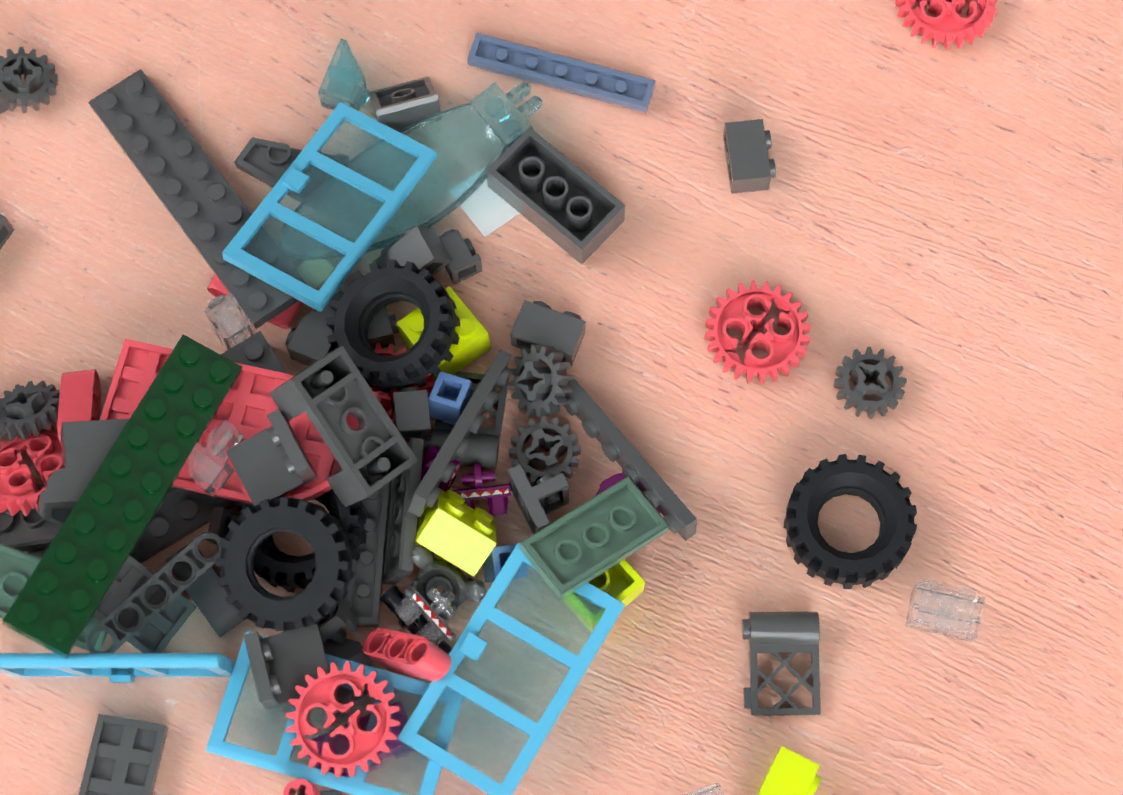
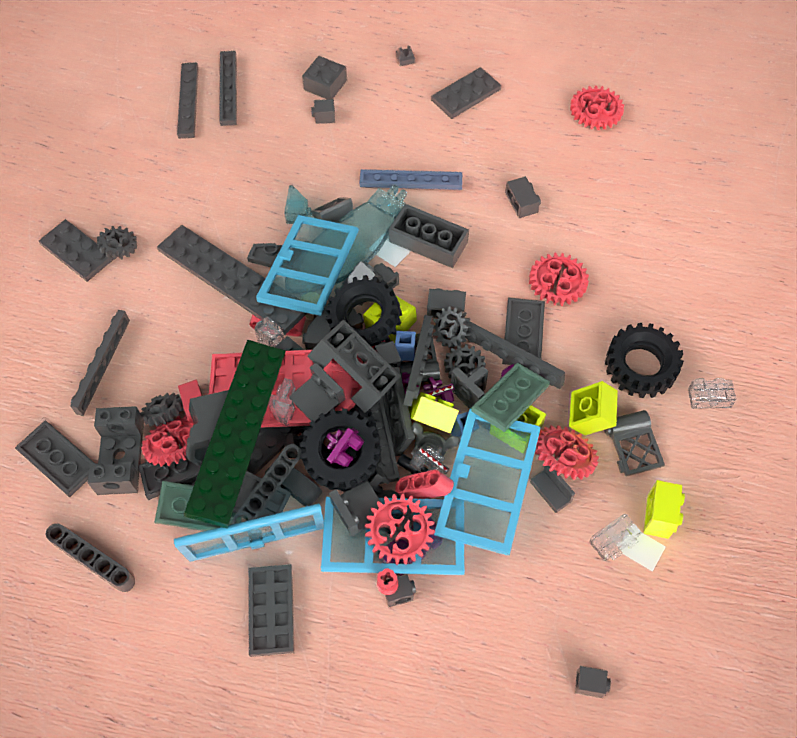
camera: 15 degrees left, 10 degrees down
(295, 556) = (349, 438): none -> magenta hips
(619, 707) = (553, 489): none -> dark grey panel
(657, 632) = (572, 461): none -> coral gear
(670, 410) = (525, 325): none -> dark grey tile
(729, 590) = (593, 408): none -> neon yellow brick
(863, 394) = (627, 290): dark grey gear -> none

